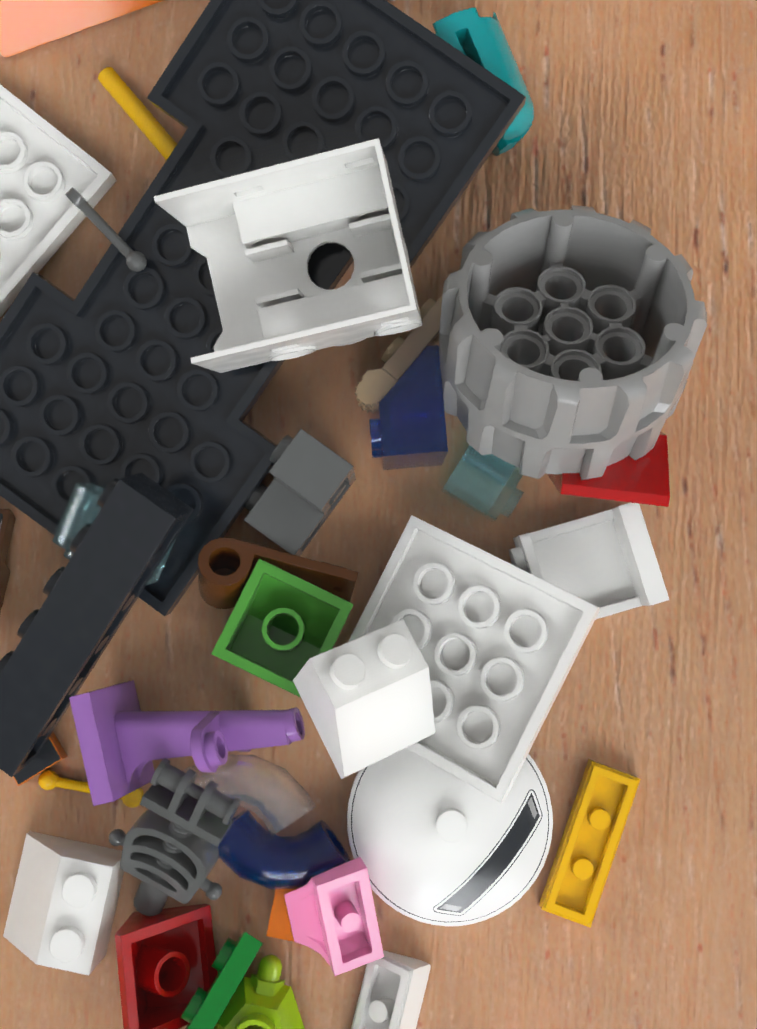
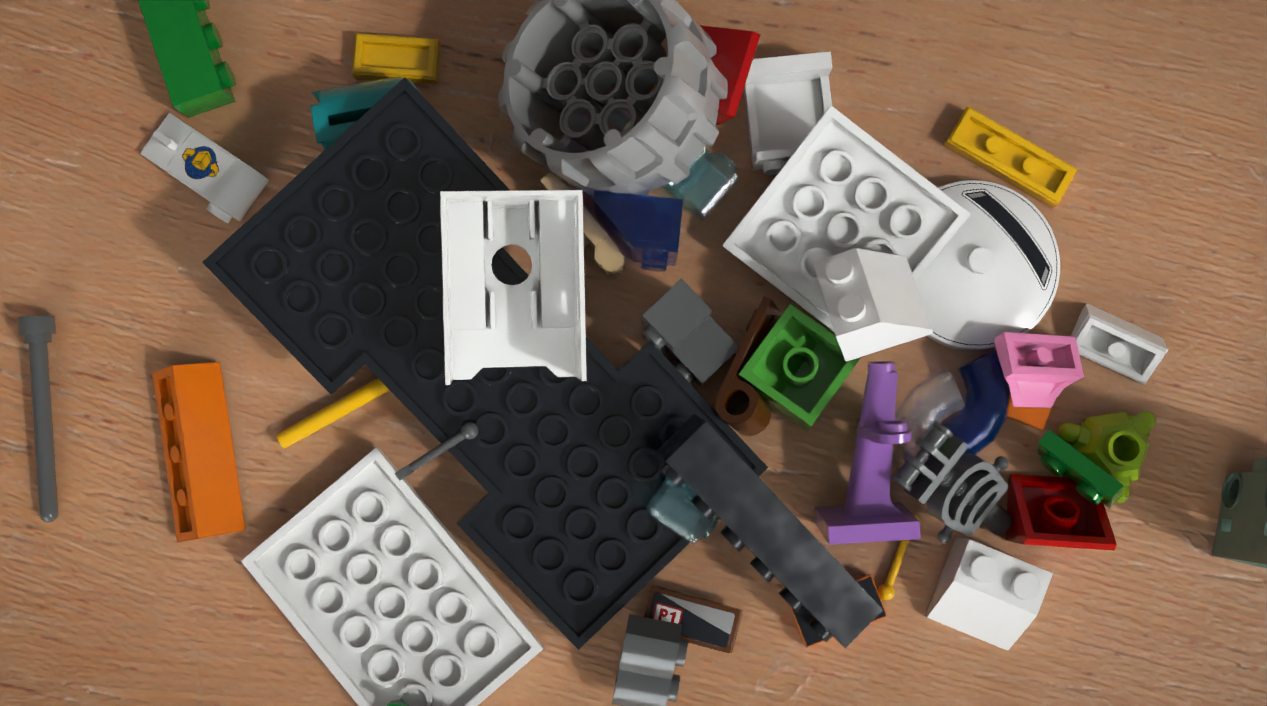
camera: 80 degrees left, 0 degrees up
(560, 111) = (393, 56): none -> yellow tile

